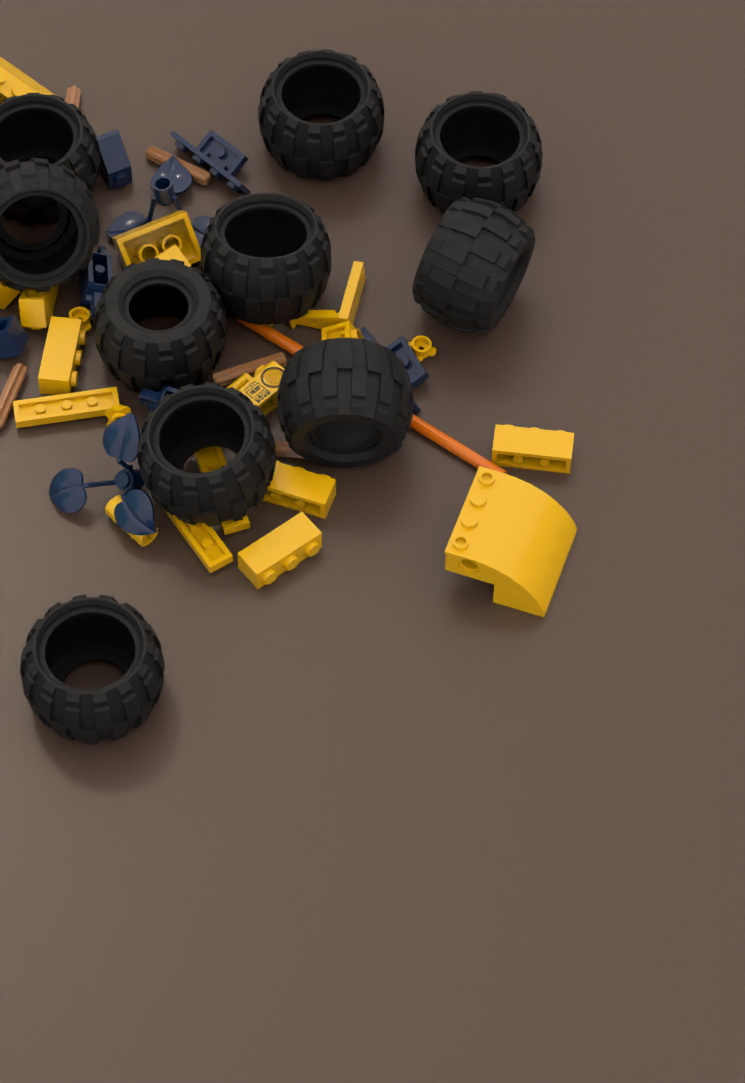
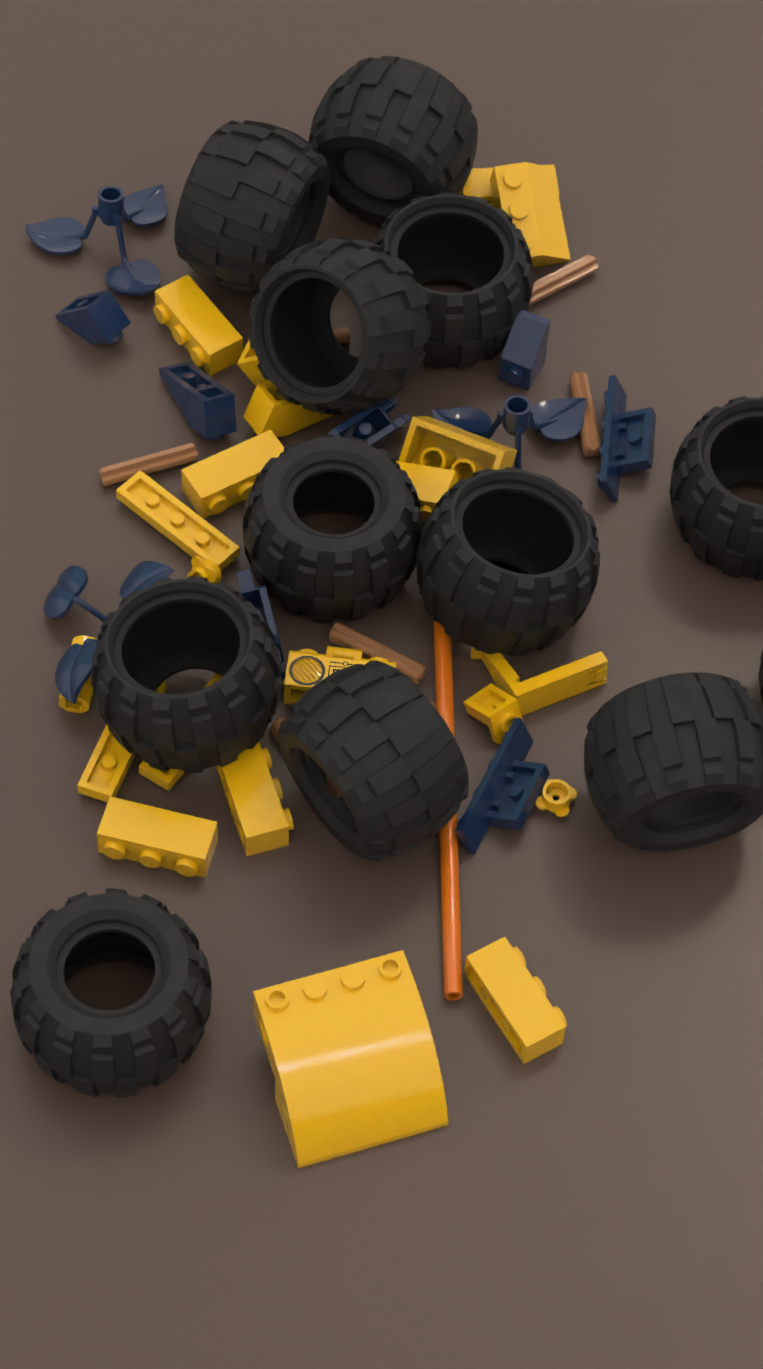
camera: 50 degrees right, 0 degrees up
(370, 661) = (119, 1046): none -> black tyre

